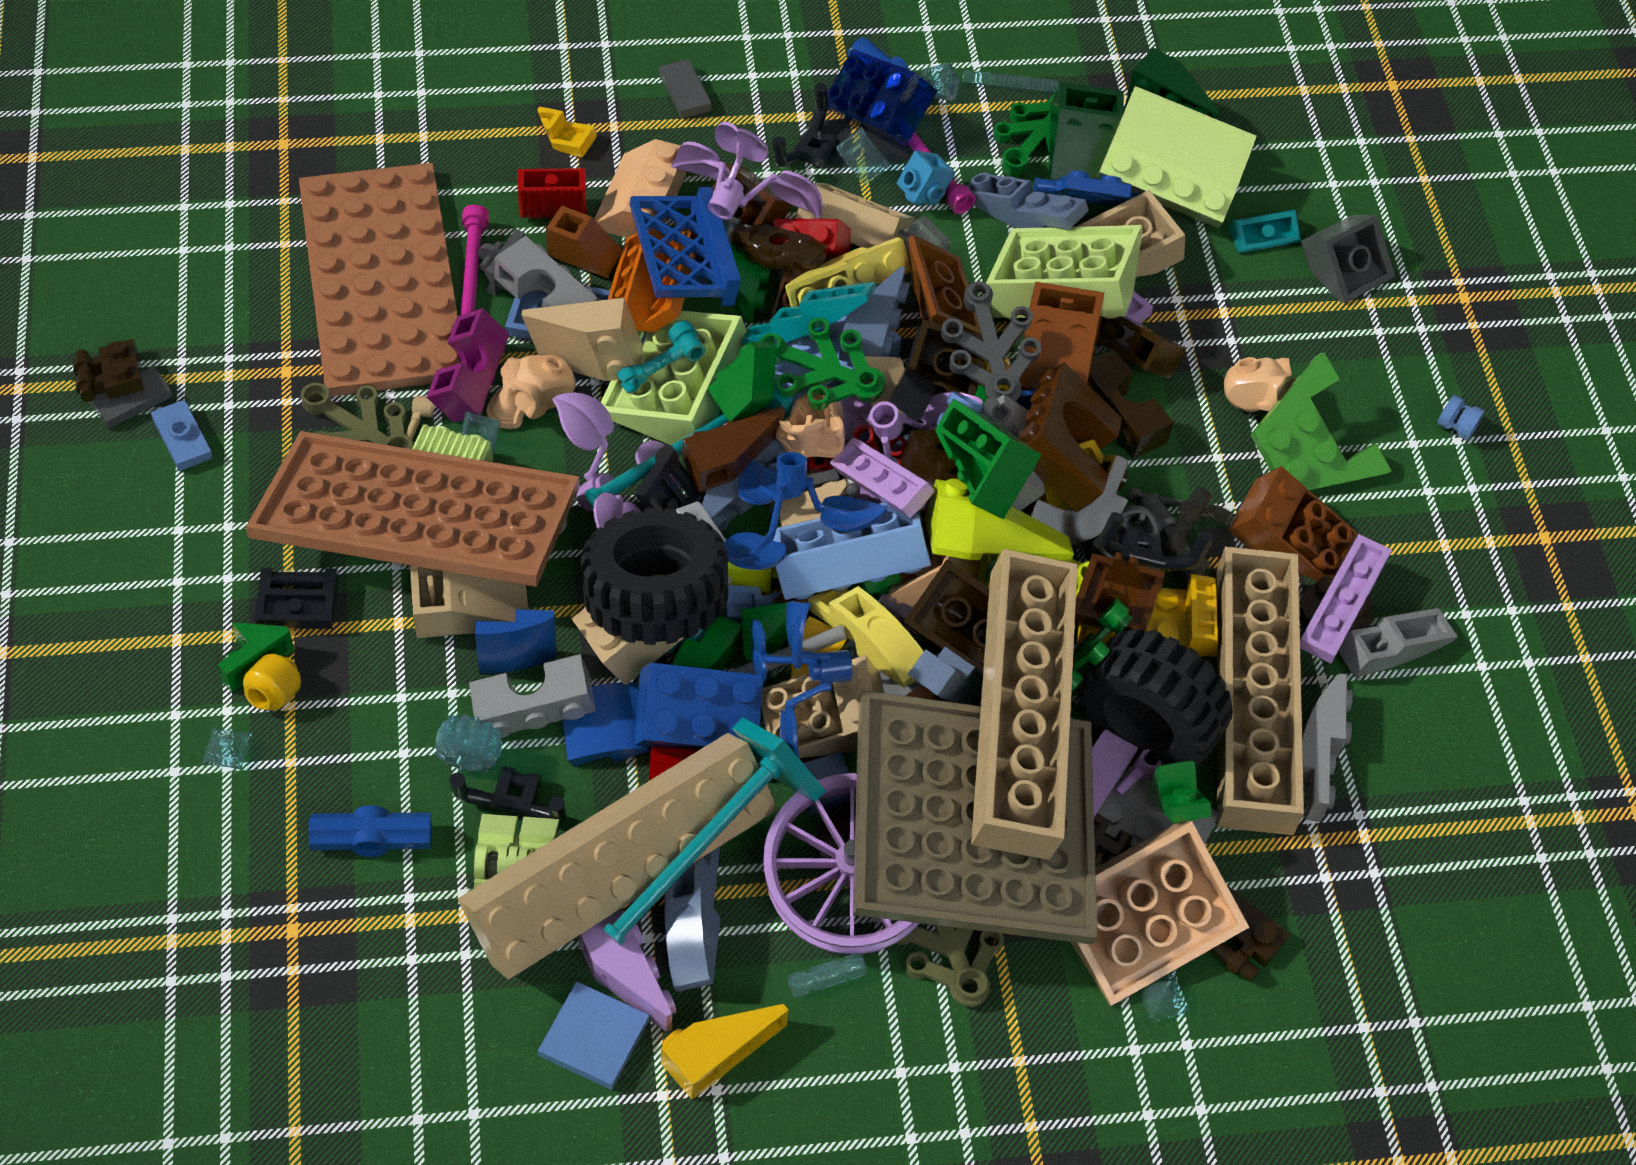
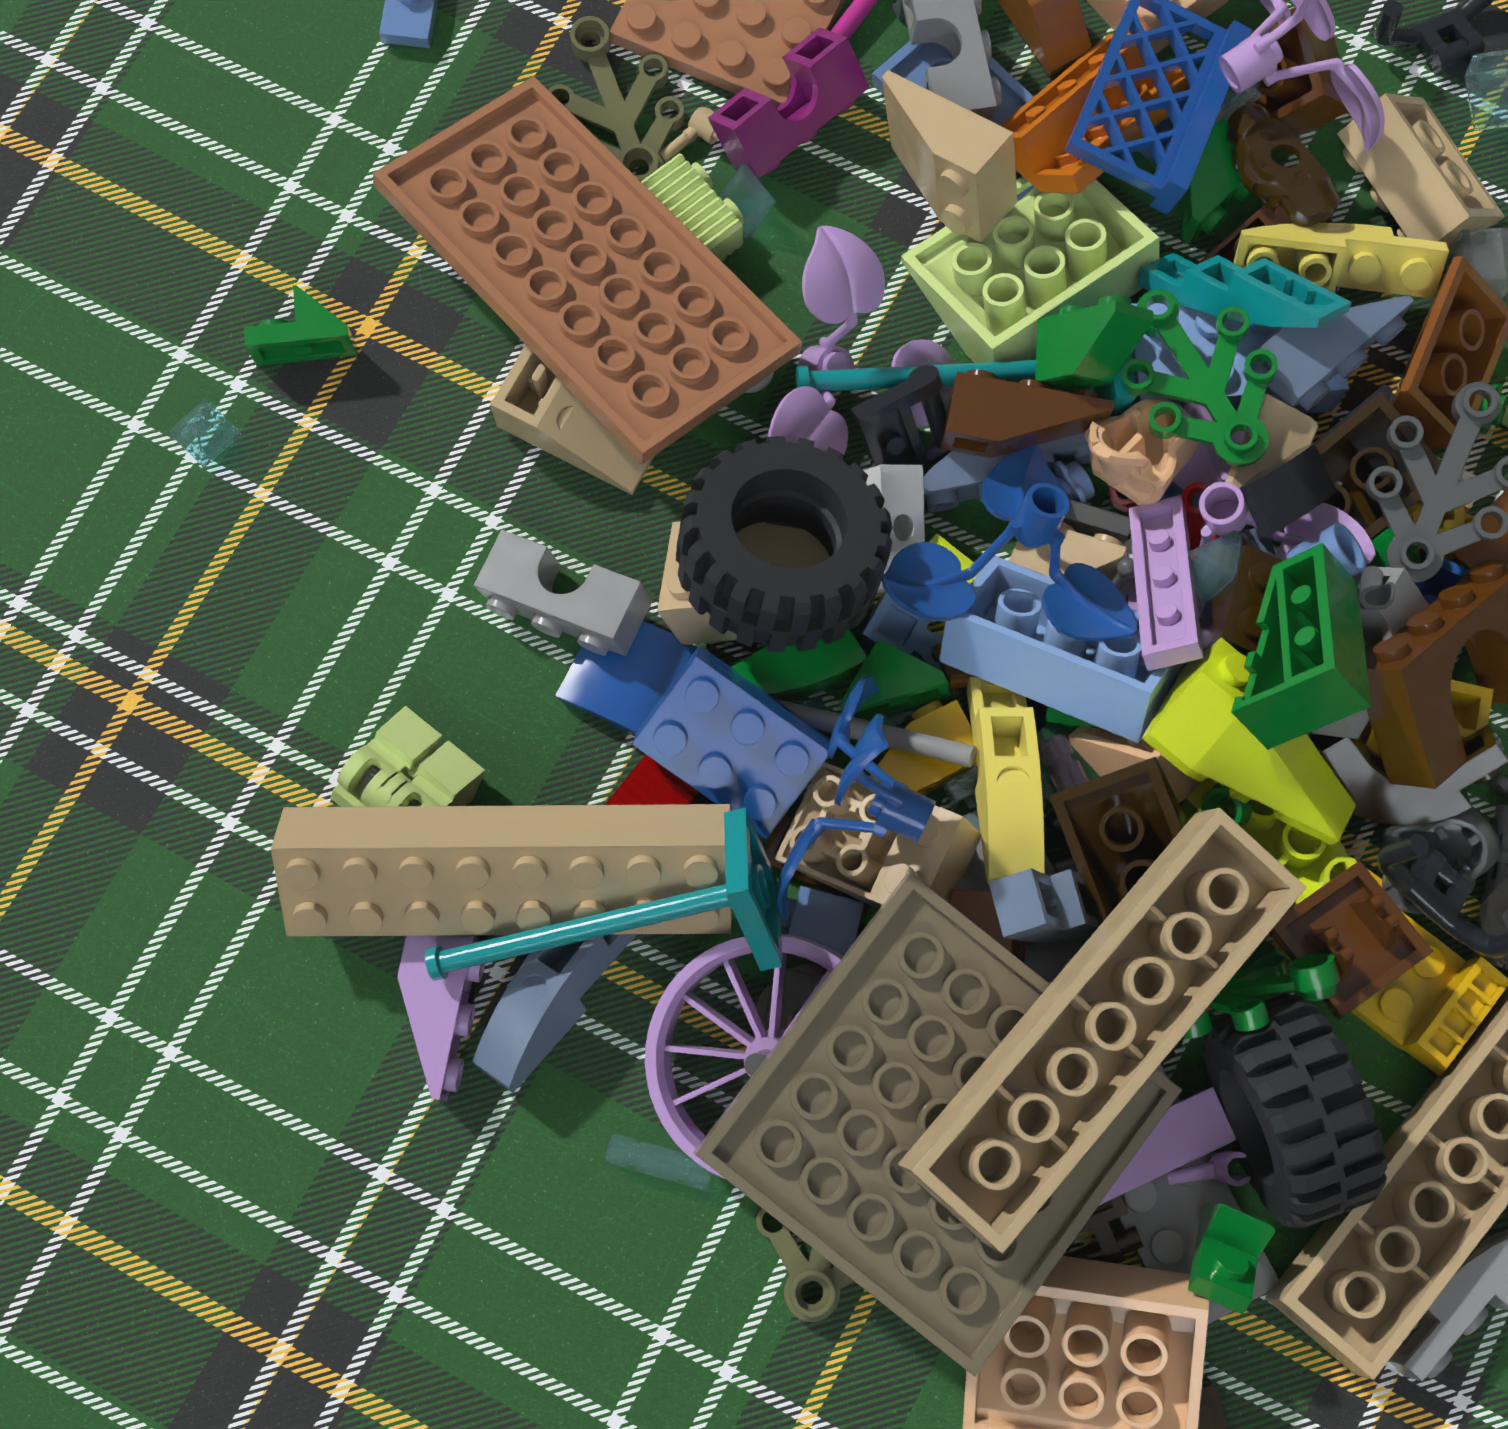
camera: 40 degrees right, 20 degrees up
(271, 682) = (296, 384): yellow head -> none
(297, 606) = (389, 303): black plate -> none
(370, 831) = (280, 641): blue piece -> none
(468, 743) = (450, 606): clear light blue gear -> none
(502, 801) = (450, 696): black piece -> none
(516, 644) = (598, 516): blue slope -> none
(529, 388) = (844, 179): light nougat head -> none
(593, 1035) = (353, 1053): medium blue tile -> none
(685, 343) = (1061, 236): teal brick -> none
(717, 1045) = (456, 1164): yellow slope -> none
(828, 231) = (1359, 185): red brick -> none
(903, 450) = (1215, 564): none -> clear light blue slope

